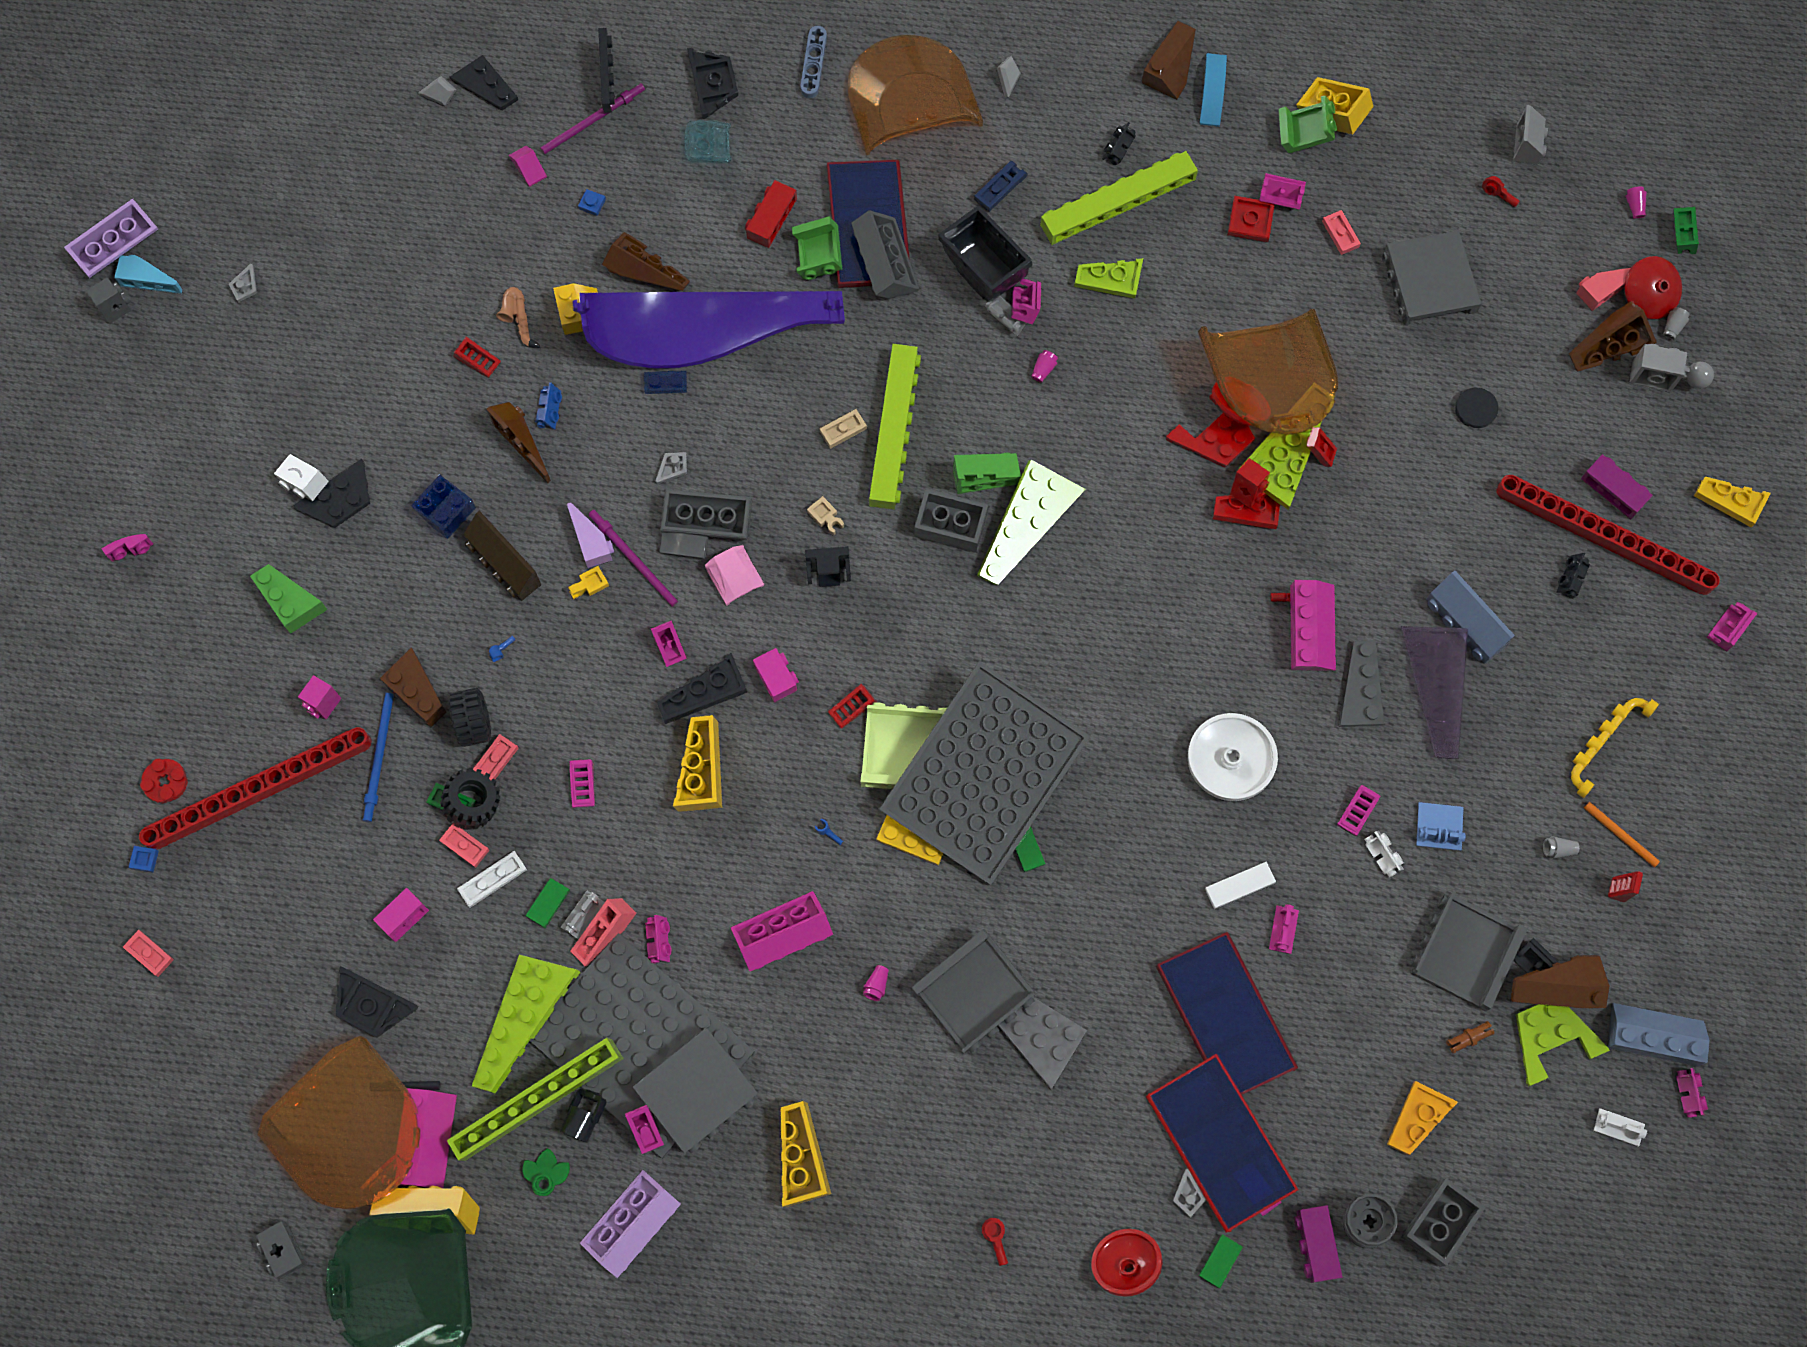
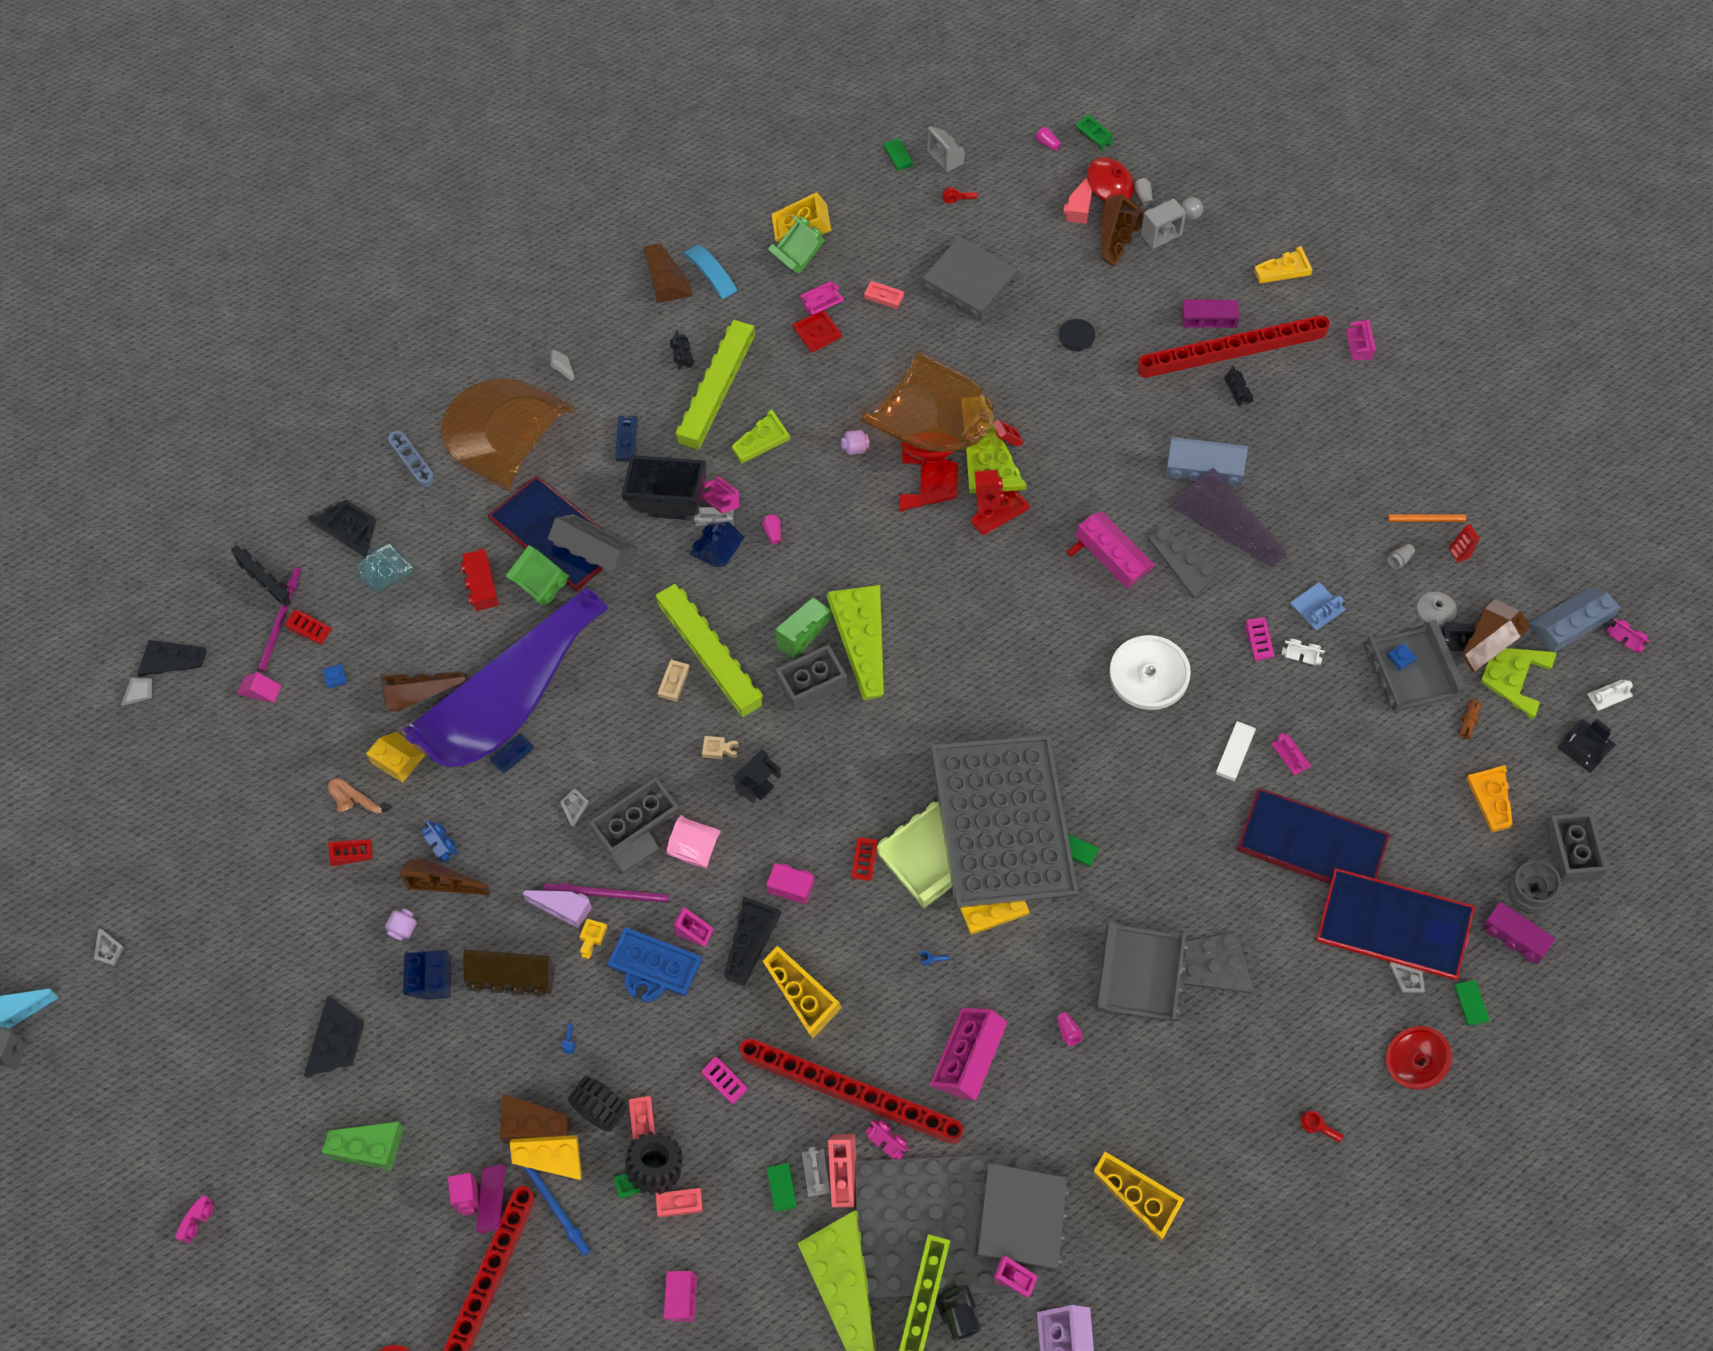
camera: 40 degrees left, 10 degrees down
(301, 478) = (292, 1048): white brick -> none
(335, 718) = (490, 1199): none -> magenta tile
(404, 723) = (548, 1154): none -> yellow wing
(461, 449) = (400, 924): none -> lavender head
(492, 879) = (723, 1209): white tile -> none
(603, 131) = (298, 619): none -> red slope
(613, 647) = (653, 965): none -> blue plate
(664, 866) = (857, 1099): none -> red beam
(985, 341) = (717, 544): none -> clear blue slope
(1185, 346) = (855, 442): none -> lavender head
(1466, 933) = (1401, 657): none -> blue plate
(1485, 109) = (898, 154): none -> green tile
(1538, 927) = (1429, 611): none -> light grey dish
(1551, 1149) = (1588, 744): none -> black panel
(1607, 730) = (1357, 476): yellow bar -> none

